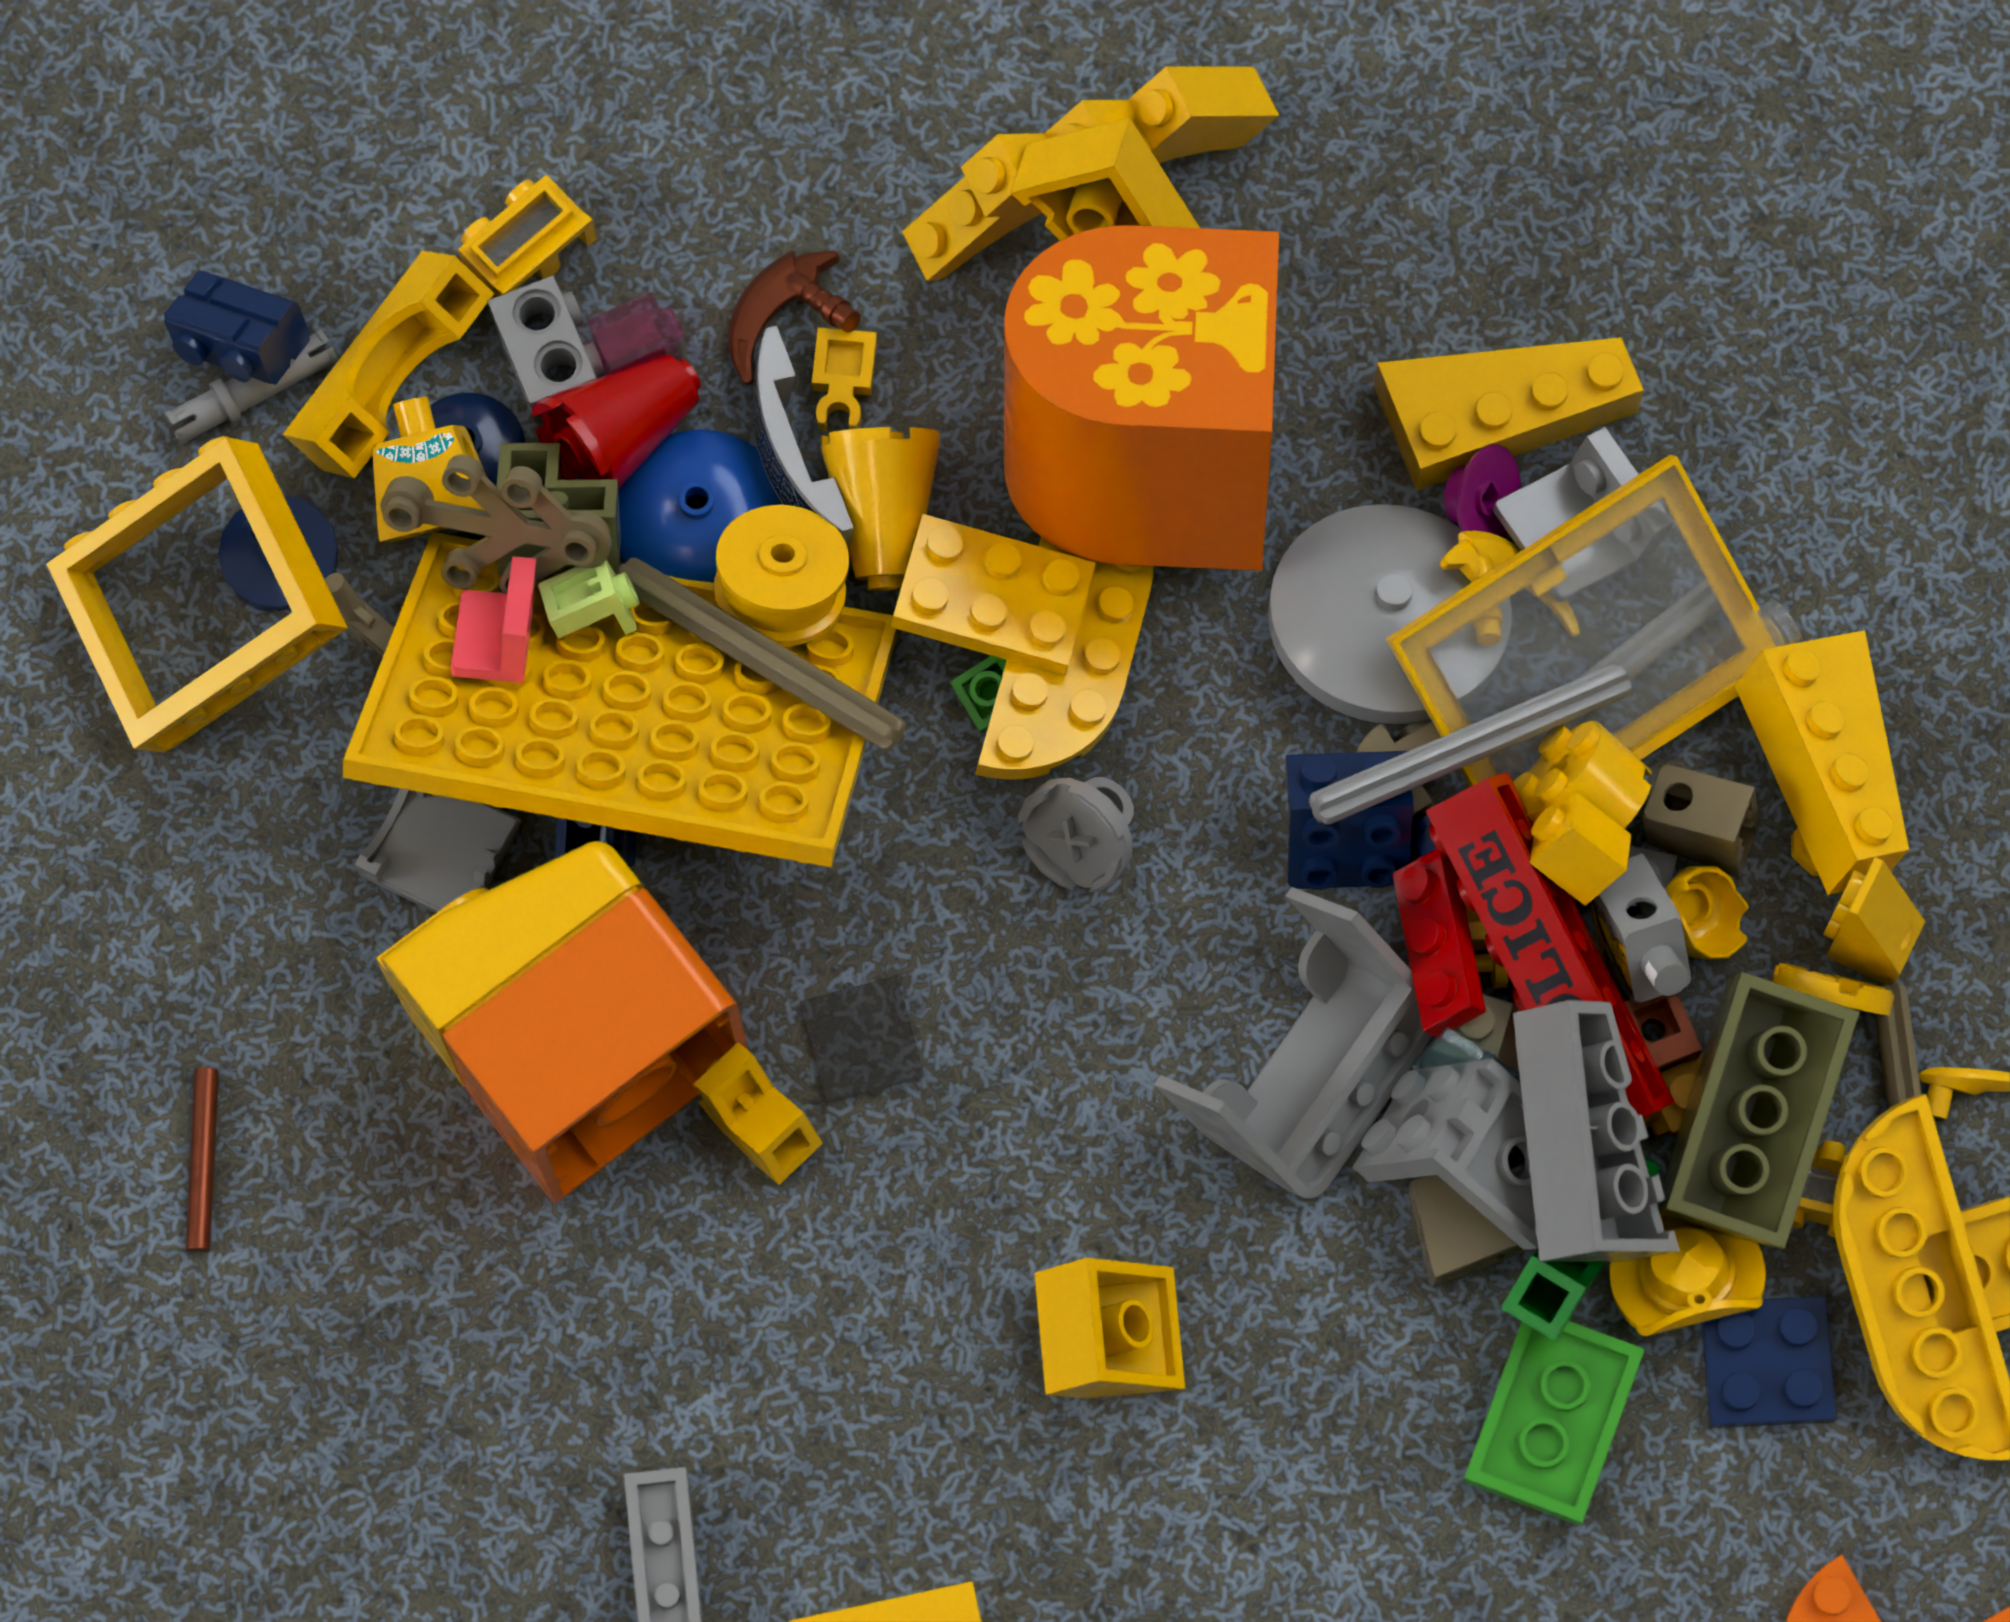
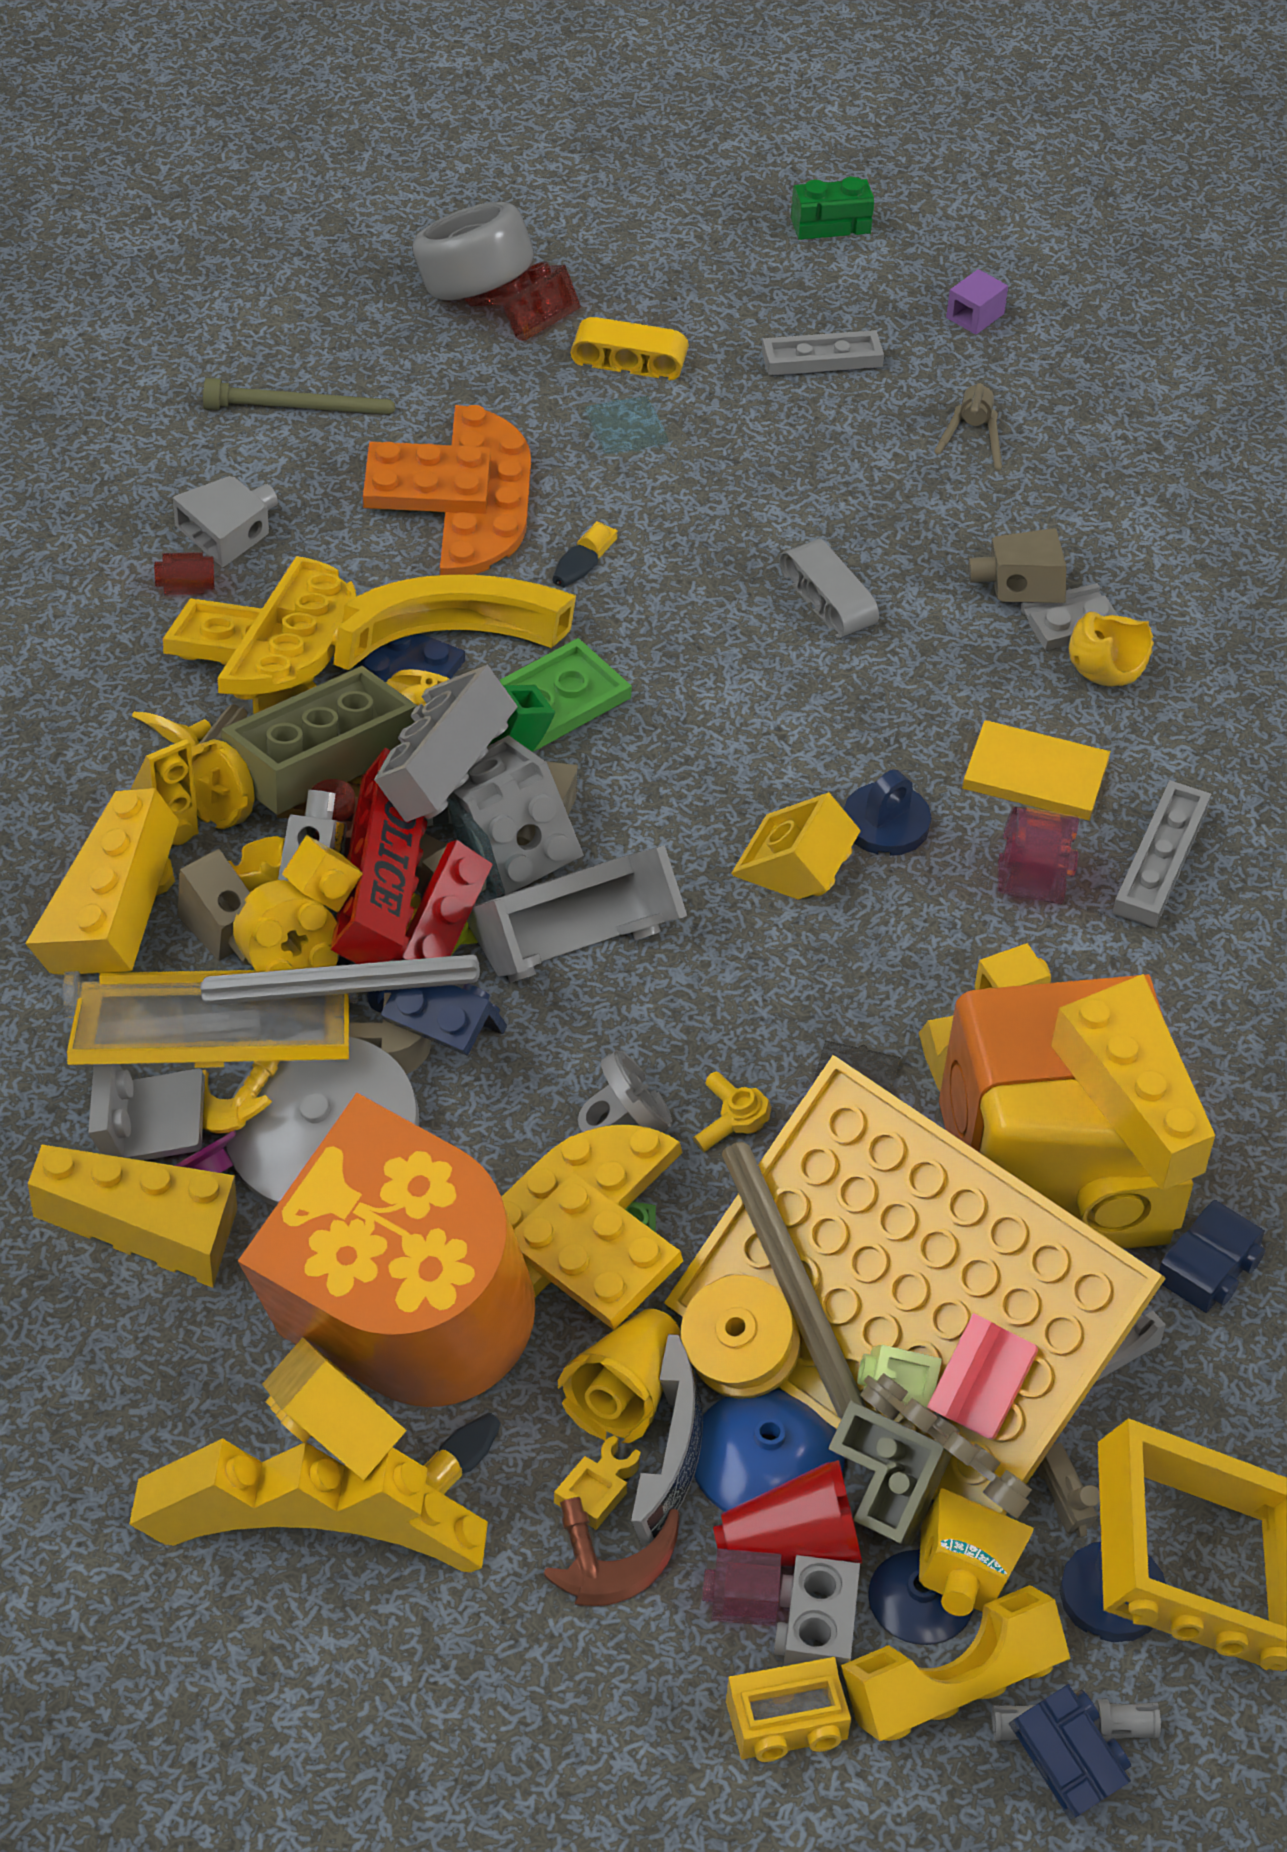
camera: 155 degrees left, 25 degrees down
(346, 1009) = (1211, 1257): none -> dark blue brick
(479, 957) = (1136, 1078): none -> yellow wedge
(747, 1273) = (1012, 968): none -> yellow brick
(810, 1470) = (1037, 854): none -> clear pink brick
(956, 907) = (742, 1111): none -> yellow piece
(991, 337) = (461, 1452): none -> black piece
(1035, 1464) = (889, 815): none -> dark blue tile
(1678, 1033) = (344, 797): none -> clear red tile
(1785, 1458) = (451, 603): none -> yellow arch

